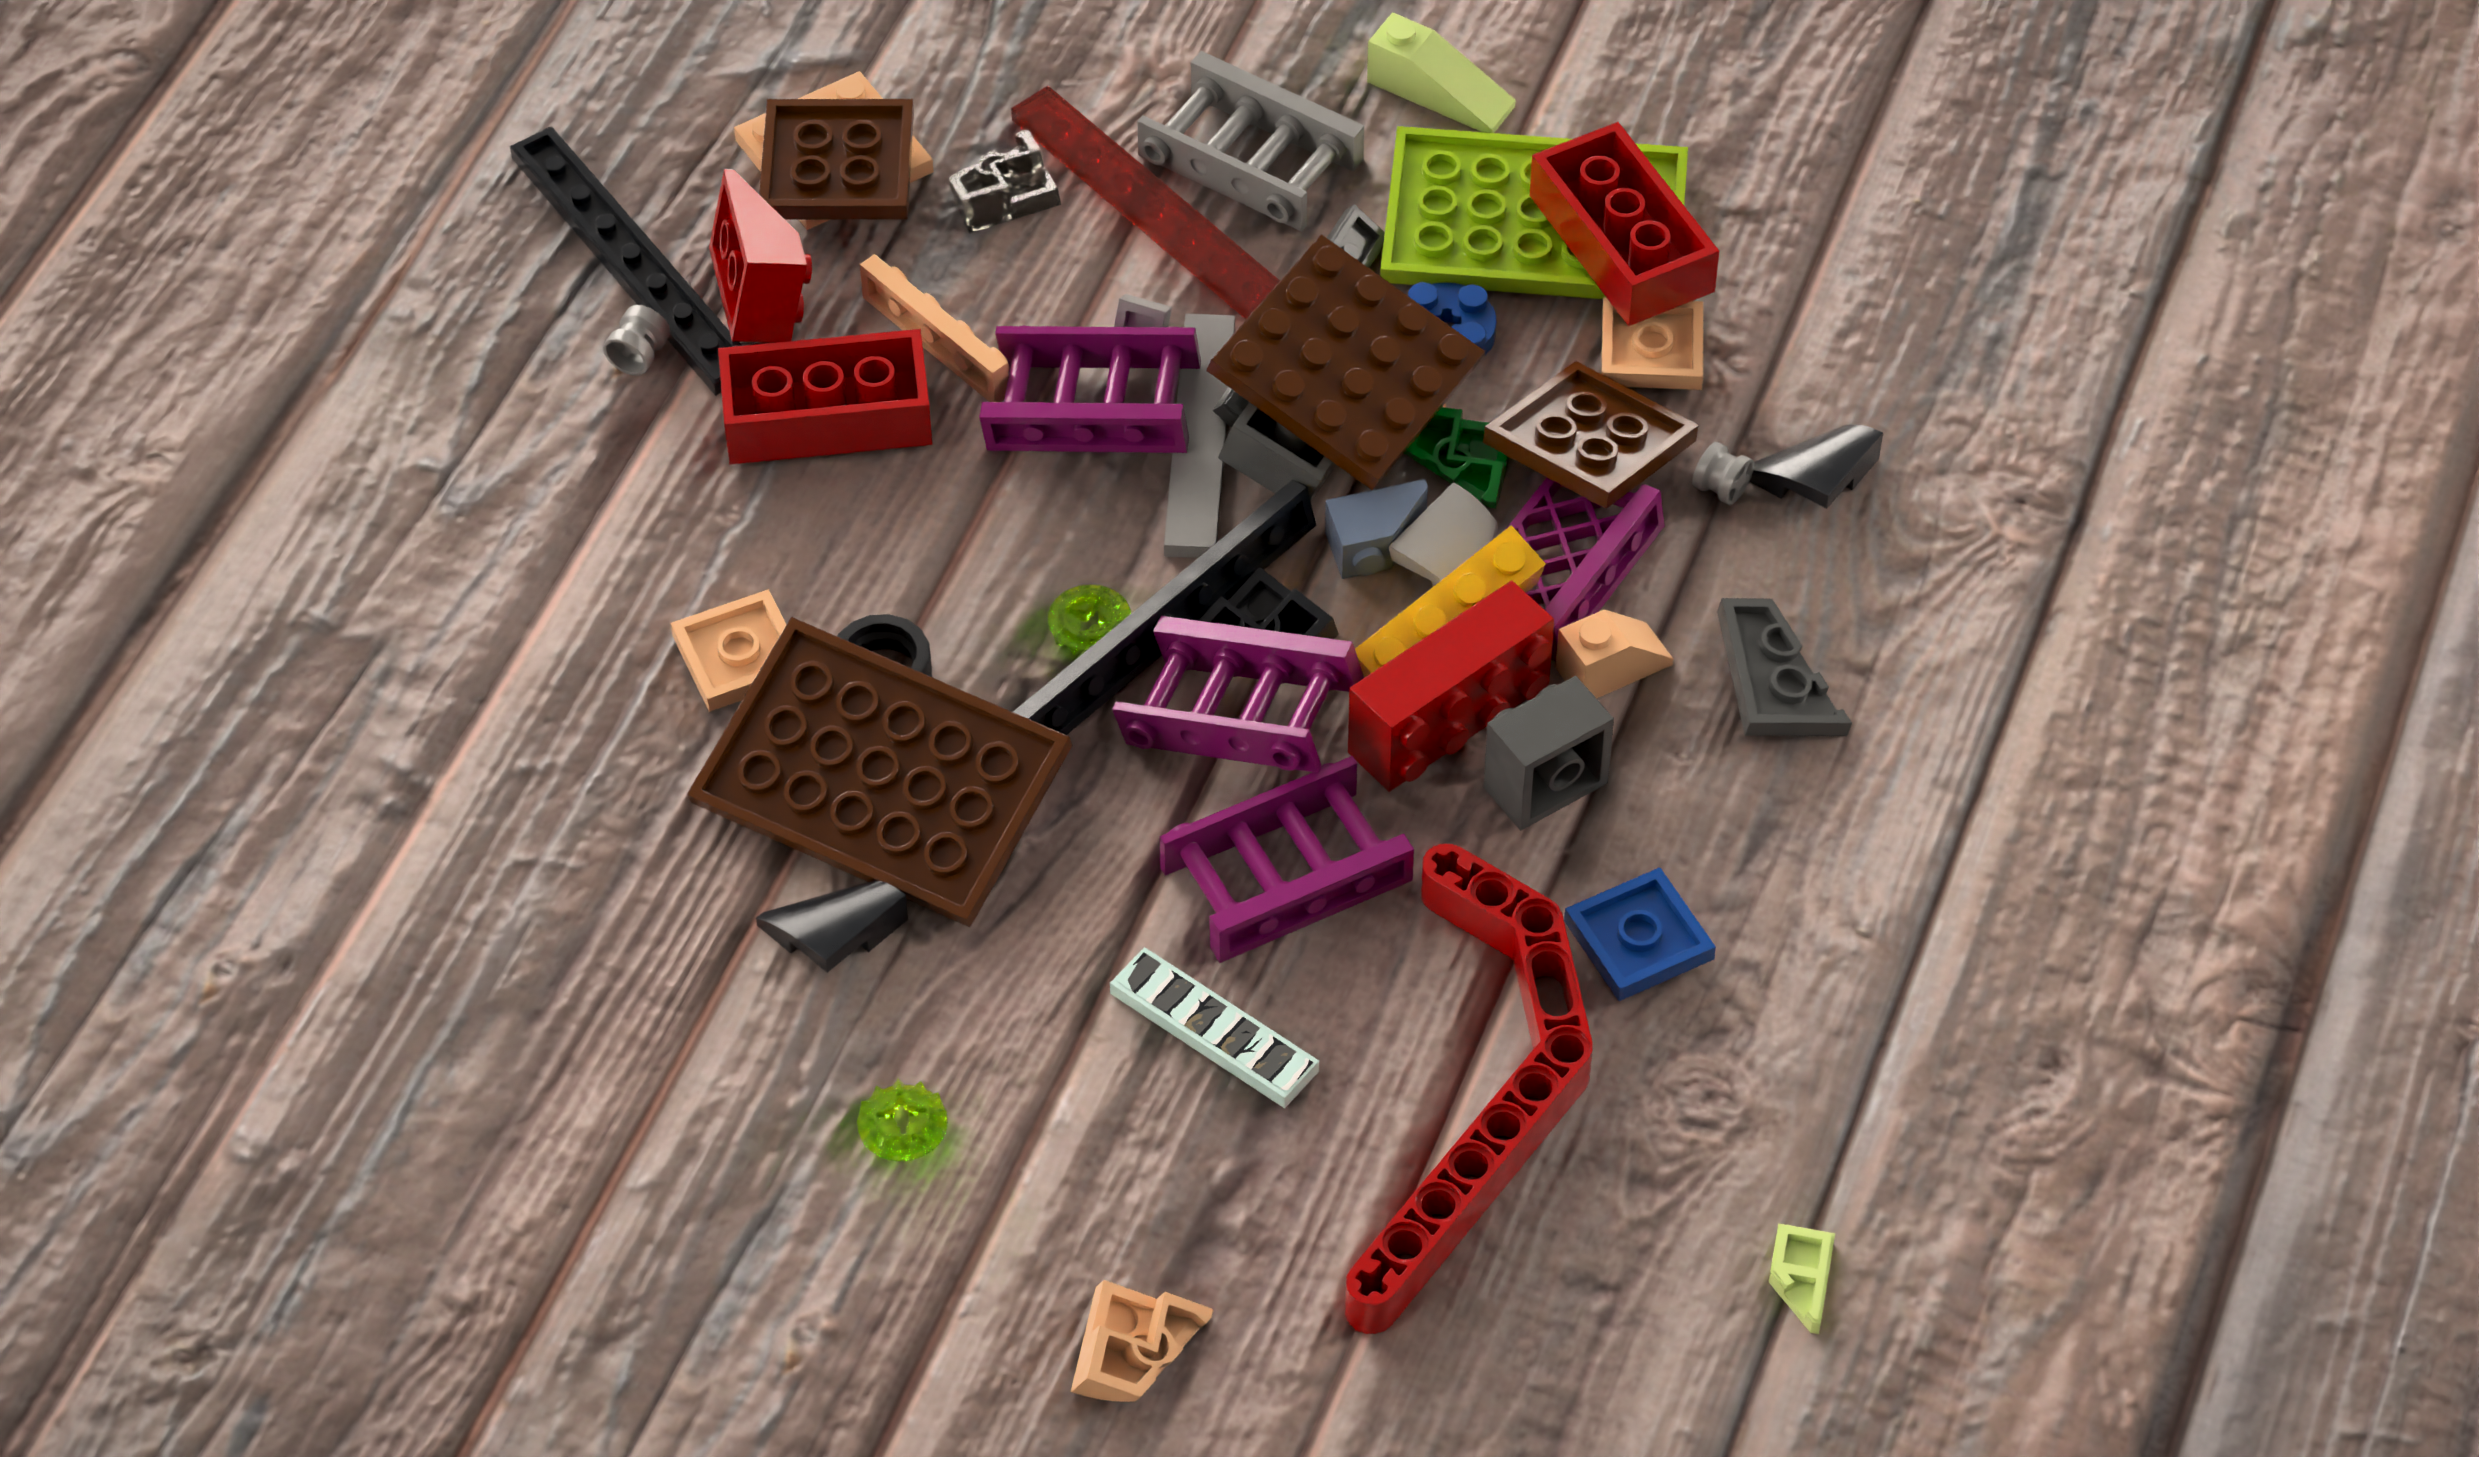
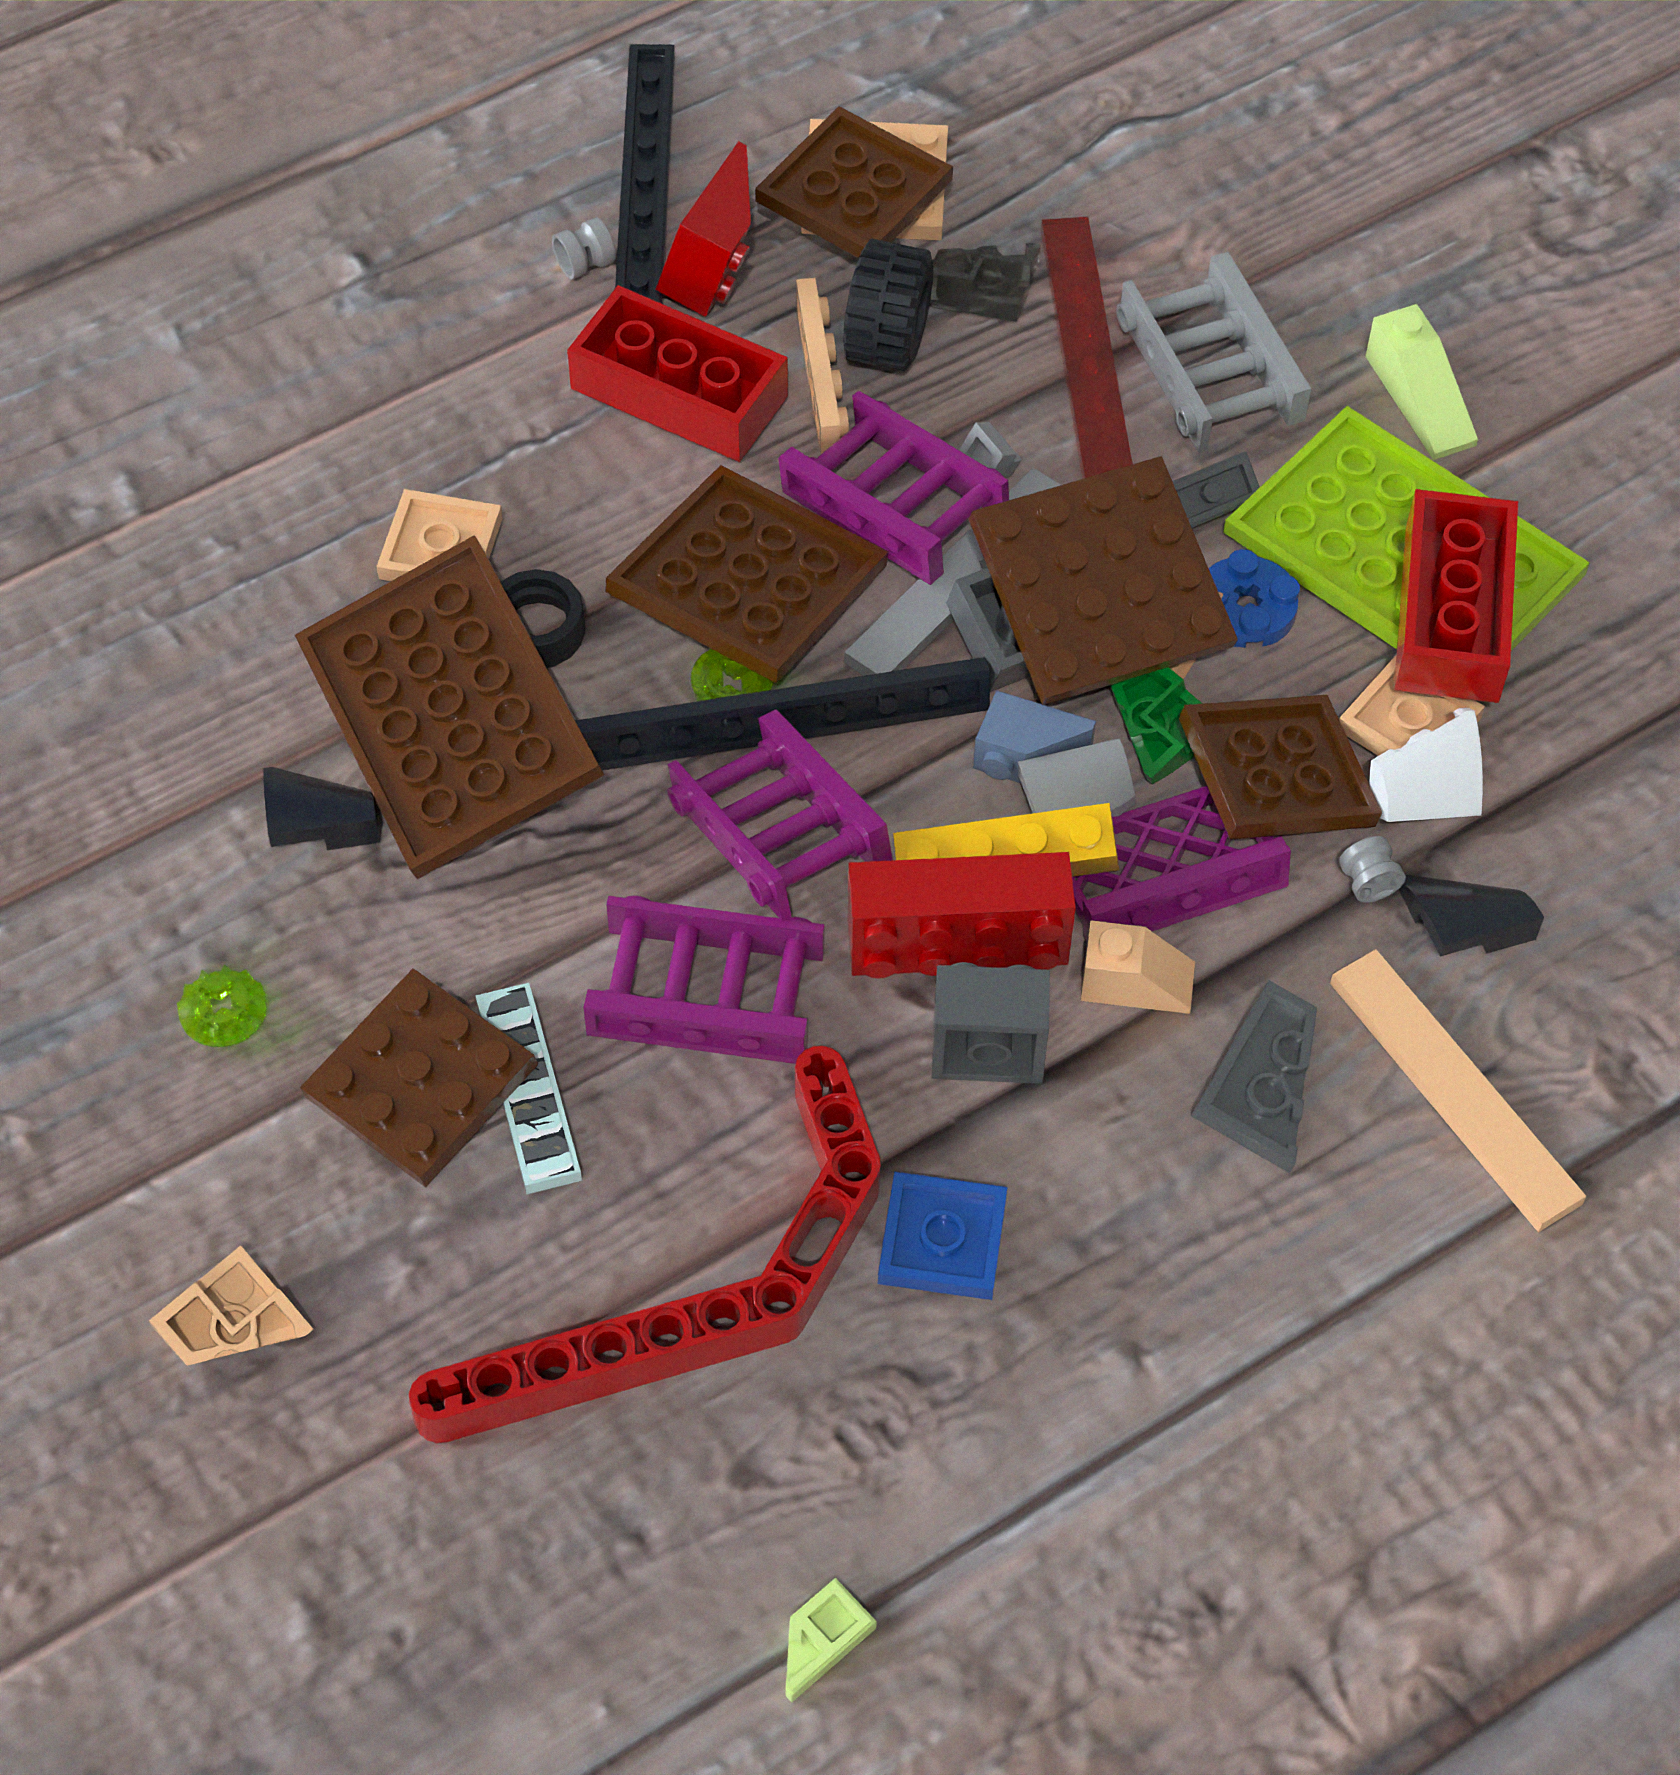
camera: 35 degrees right, 5 degrees up
(963, 241) = (888, 304): none -> black tyre
(1031, 525) = (747, 573): none -> reddish brown plate
(1122, 1070) = (419, 1077): none -> reddish brown plate
(1271, 606) = (876, 765): black slope -> none
(1710, 372) = (1432, 774): none -> white slope
(1917, 599) = (1458, 1091): none -> light nougat tile

